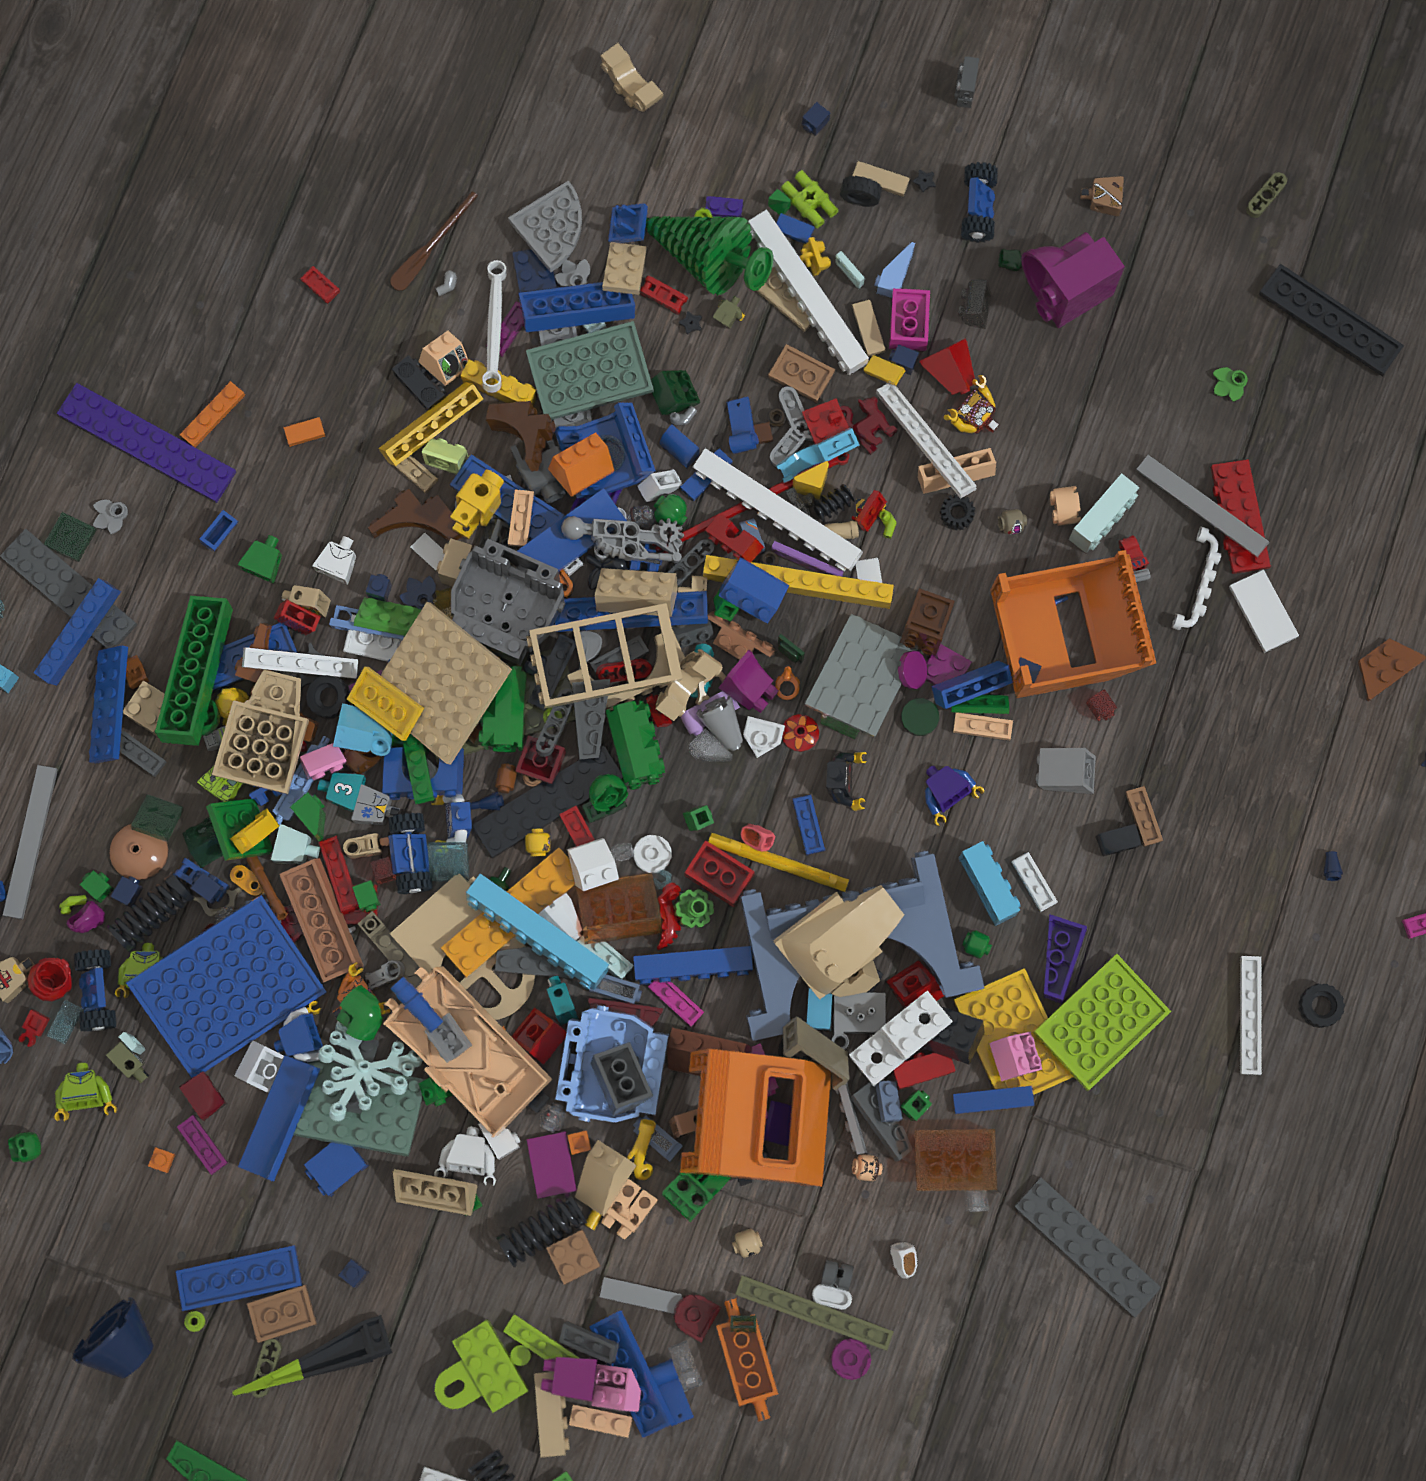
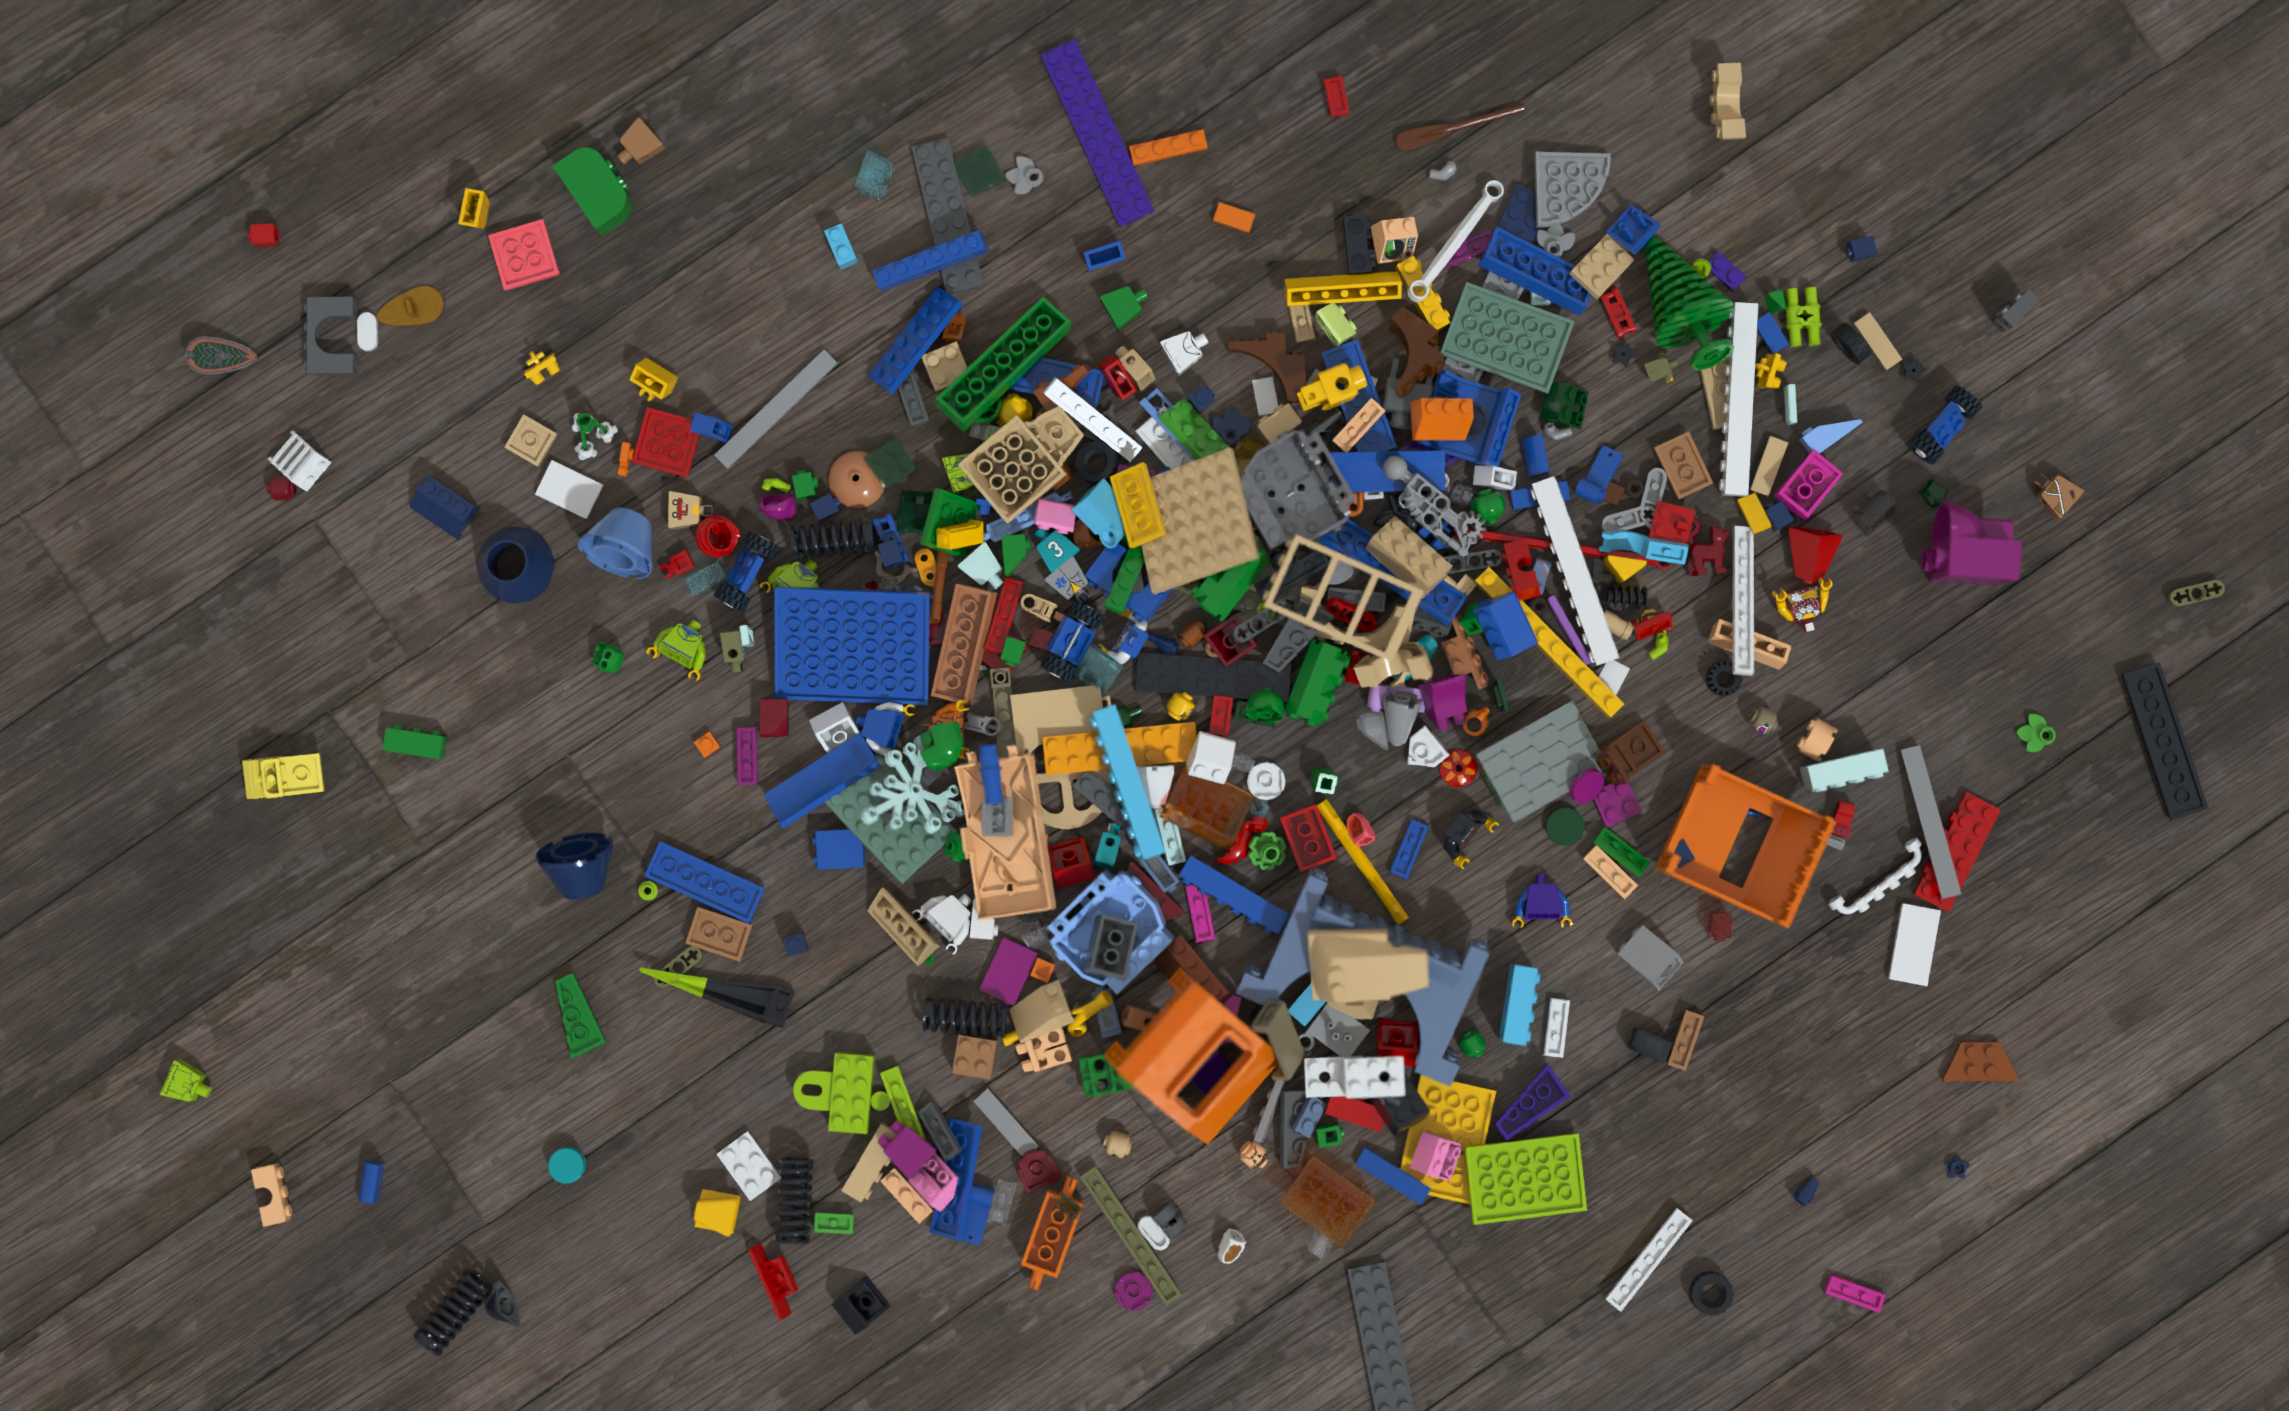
camera: 40 degrees right, 10 degrees up
(972, 684) = (1626, 833): blue brick -> none

